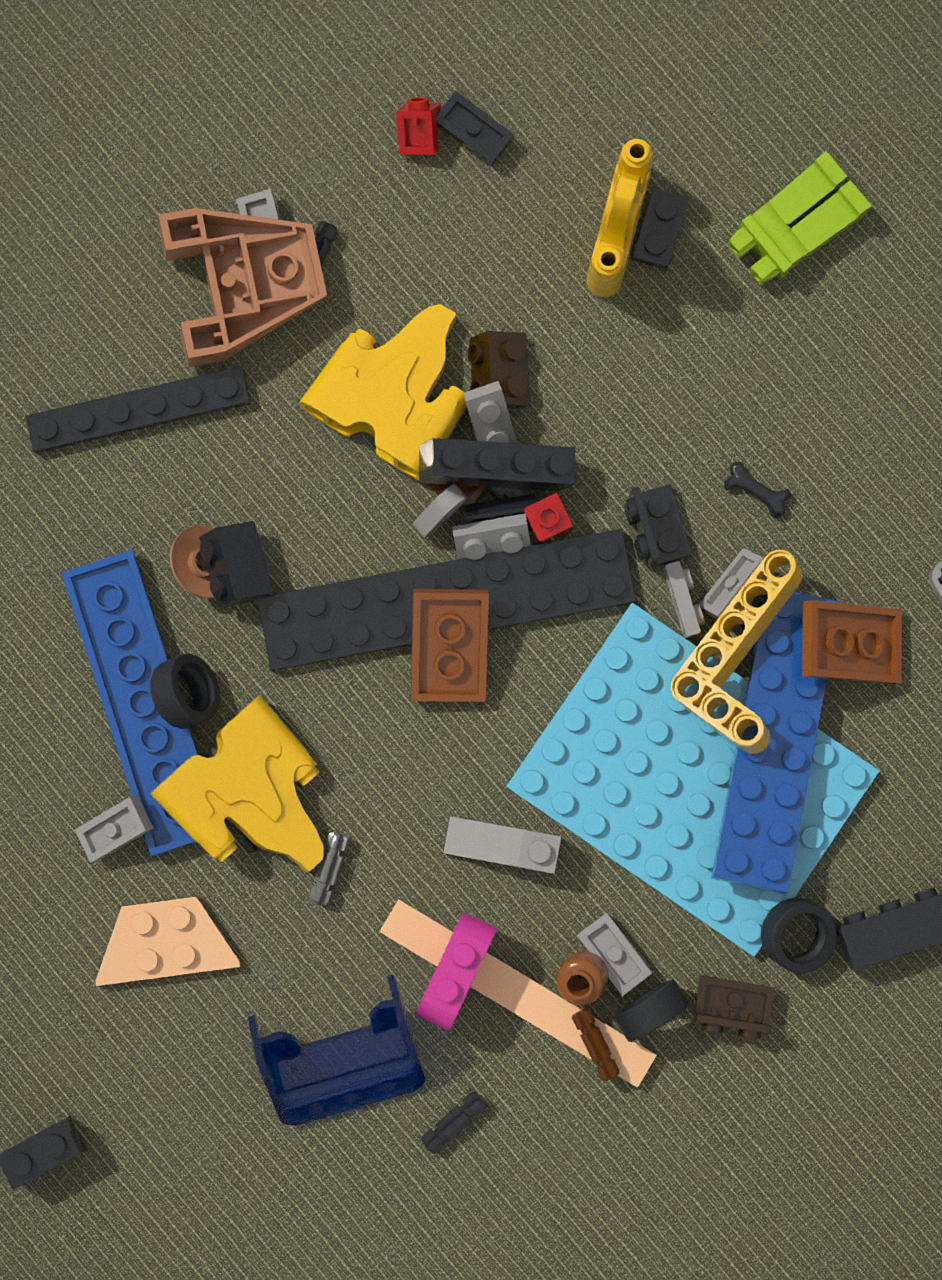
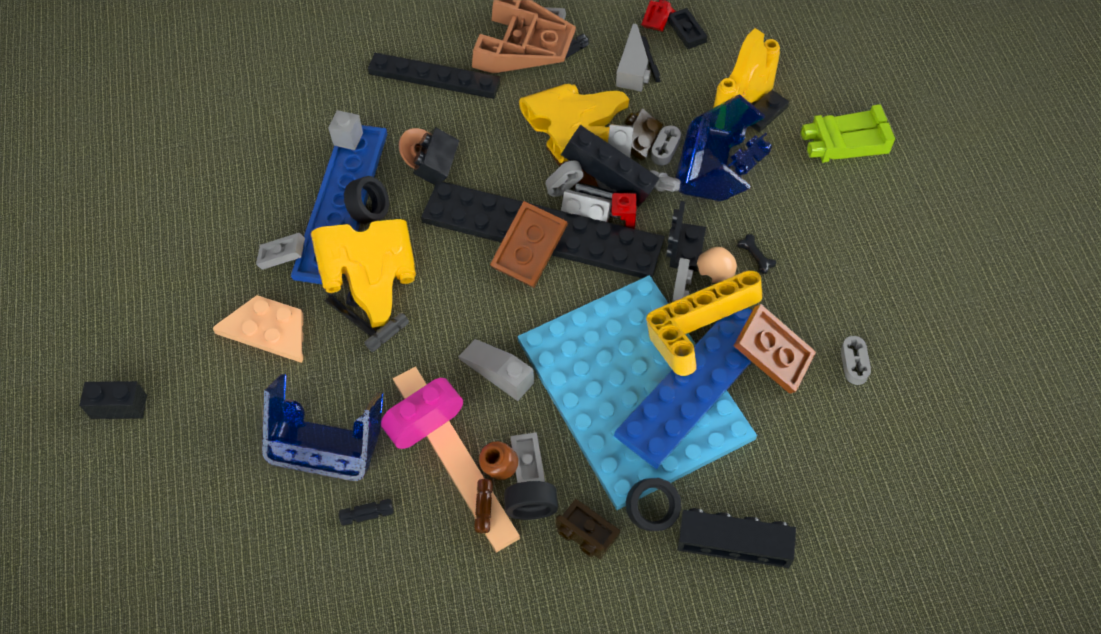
camera: 25 degrees right, 25 degrees down
(85, 594) = (345, 130): none -> light grey brick
(266, 867) = (359, 322): none -> black piece
(429, 241) = (633, 65): none -> light grey slope
(459, 229) = (653, 67): none -> black piece
(556, 366) = (661, 144): none -> light grey beam
(583, 440) = (666, 182): none -> light grey axle
(614, 359) = (707, 149): none -> clear blue windscreen
(677, 309) = (743, 160): none -> clear blue hinge
(714, 541) = (717, 264): none -> light nougat hair

